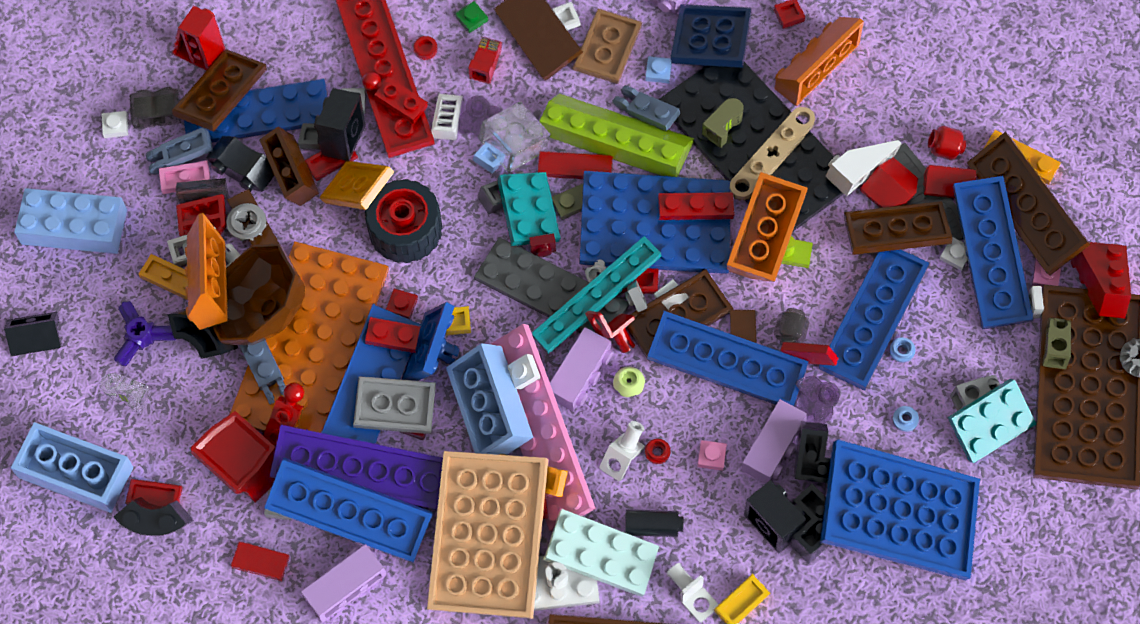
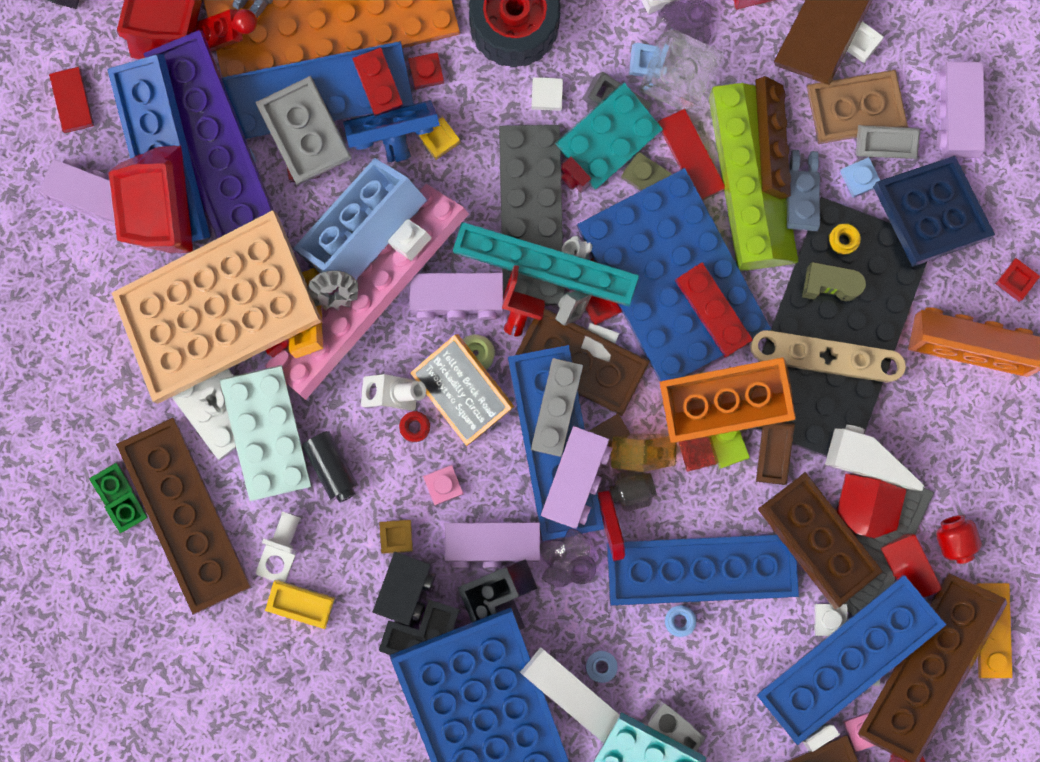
camera: 50 degrees right, 15 degrees up
(383, 531) = (152, 201): none -> red helmet
(471, 234) = (547, 94): none -> white tile
(523, 437) = (329, 281): none -> light grey gear
(601, 106) = (773, 138): none -> reddish brown plate
(644, 39) = (887, 142): none -> light grey tile
(651, 401) = (462, 389): none -> tile
(697, 92) = (853, 235): none -> yellow plate
(704, 342) = (556, 407): none -> light grey plate
(731, 506) = (396, 536): none -> pearl gold plate
(762, 355) = (576, 478): none -> lavender brick
(768, 306) = (642, 452): none -> clear yellow slope
(790, 273) = (698, 453): none -> clear red plate
(819, 224) = (775, 453): none -> reddish brown tile
(916, 442) = (570, 694): none -> white slope

